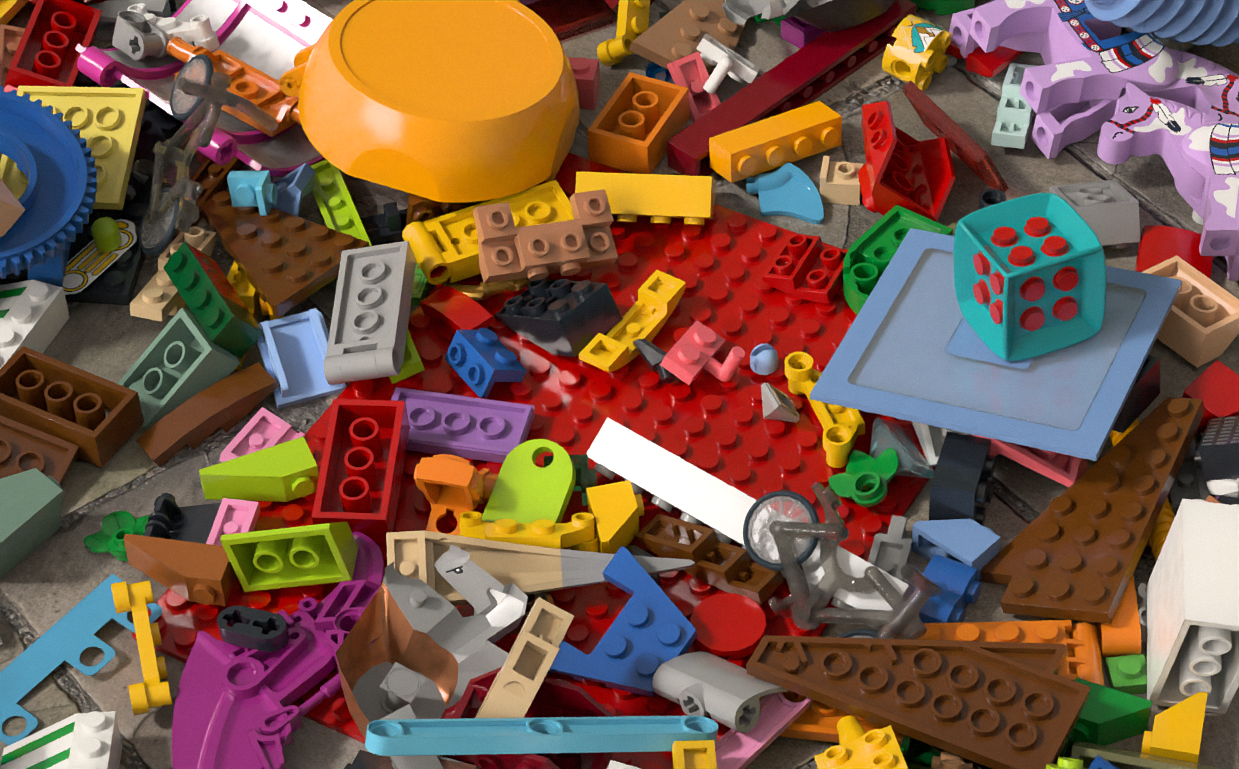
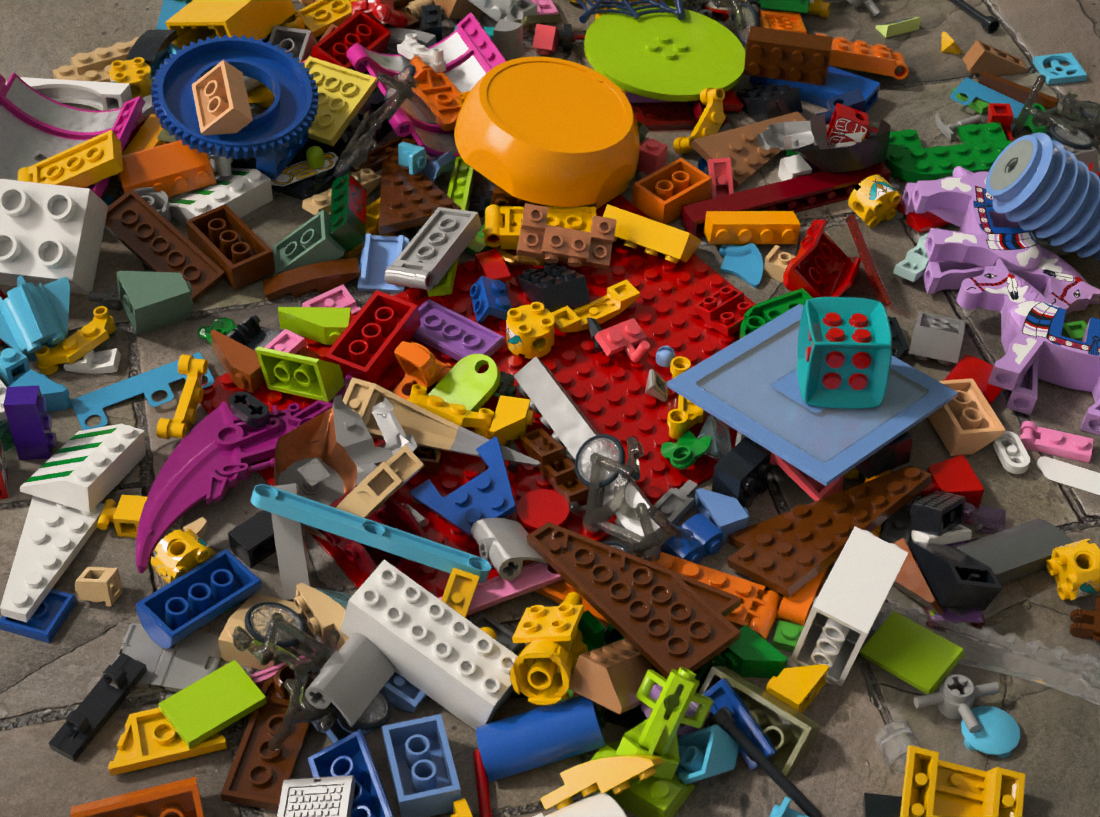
camera: 20 degrees right, 0 degrees up
(139, 36) = (398, 49): light grey piece -> none
(567, 384) = (530, 330): none -> yellow brick
(728, 63) = (747, 167): white plate -> none
(781, 40) = (793, 167): none -> white brick

